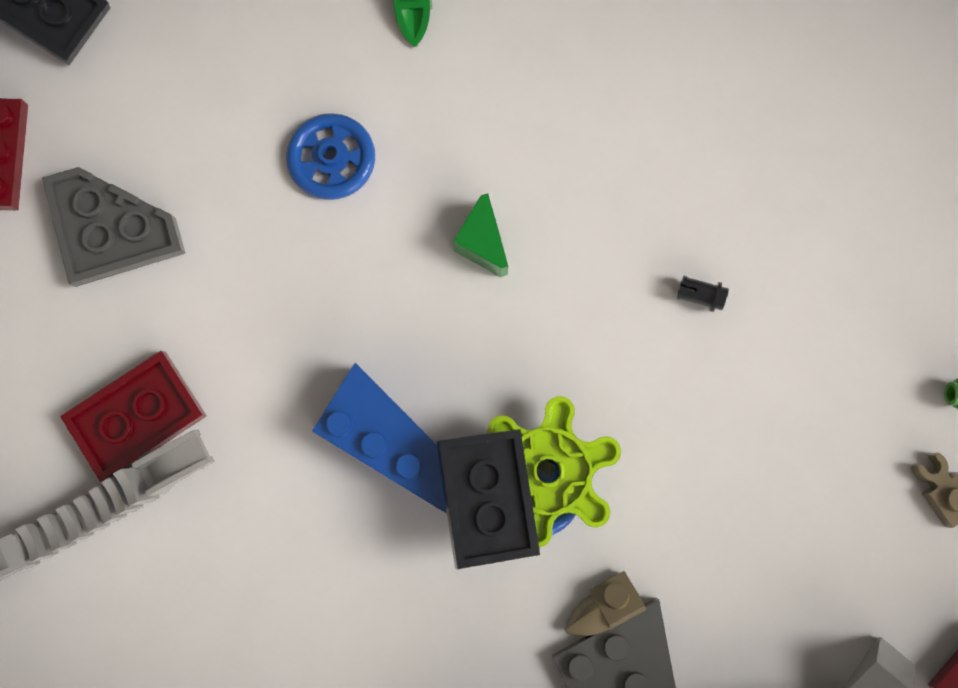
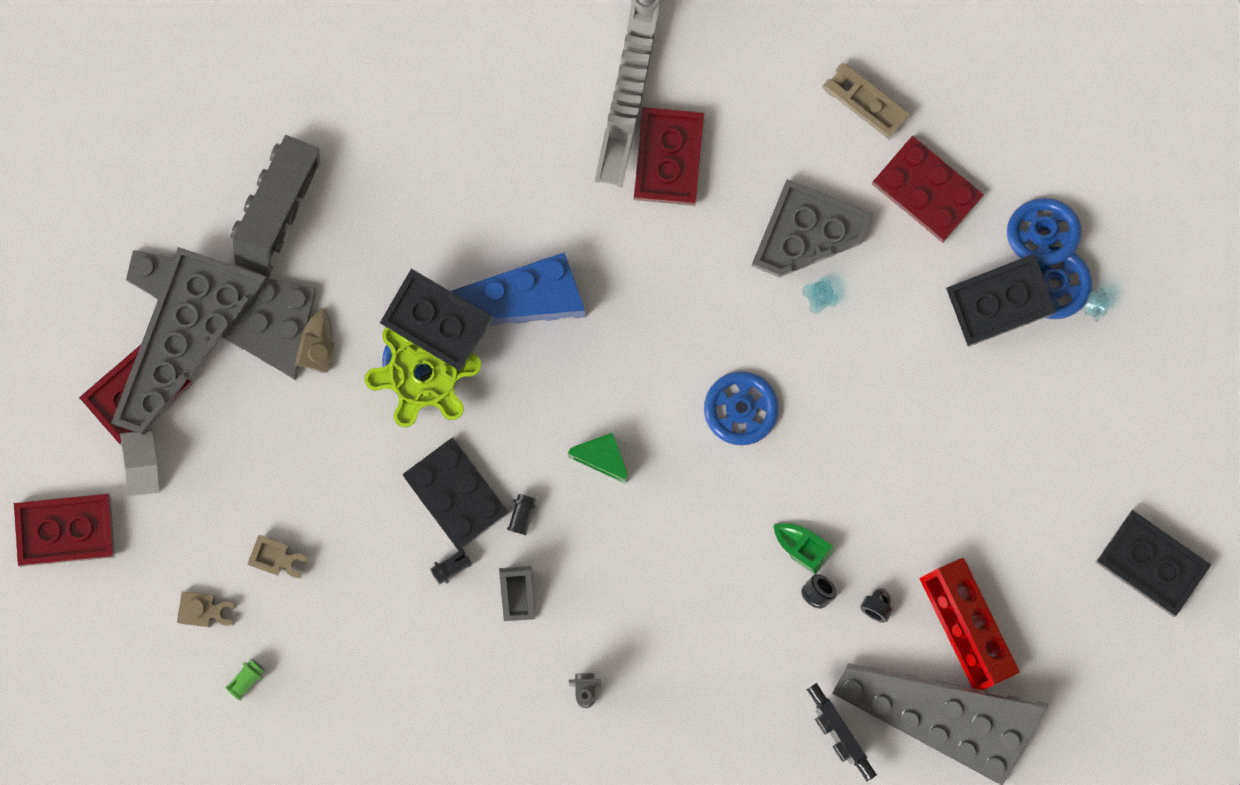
camera: 130 degrees right, 0 degrees up
(159, 159) = (823, 287): none -> clear light blue plate
(598, 268) = (522, 514): none -> black pin
(631, 347) = (455, 494): none -> black plate
(670, 214) = (517, 593): none -> dark grey slope
(707, 73) = (585, 688): none -> dark grey hinge
(843, 468) = (272, 556): none -> dark tan plate

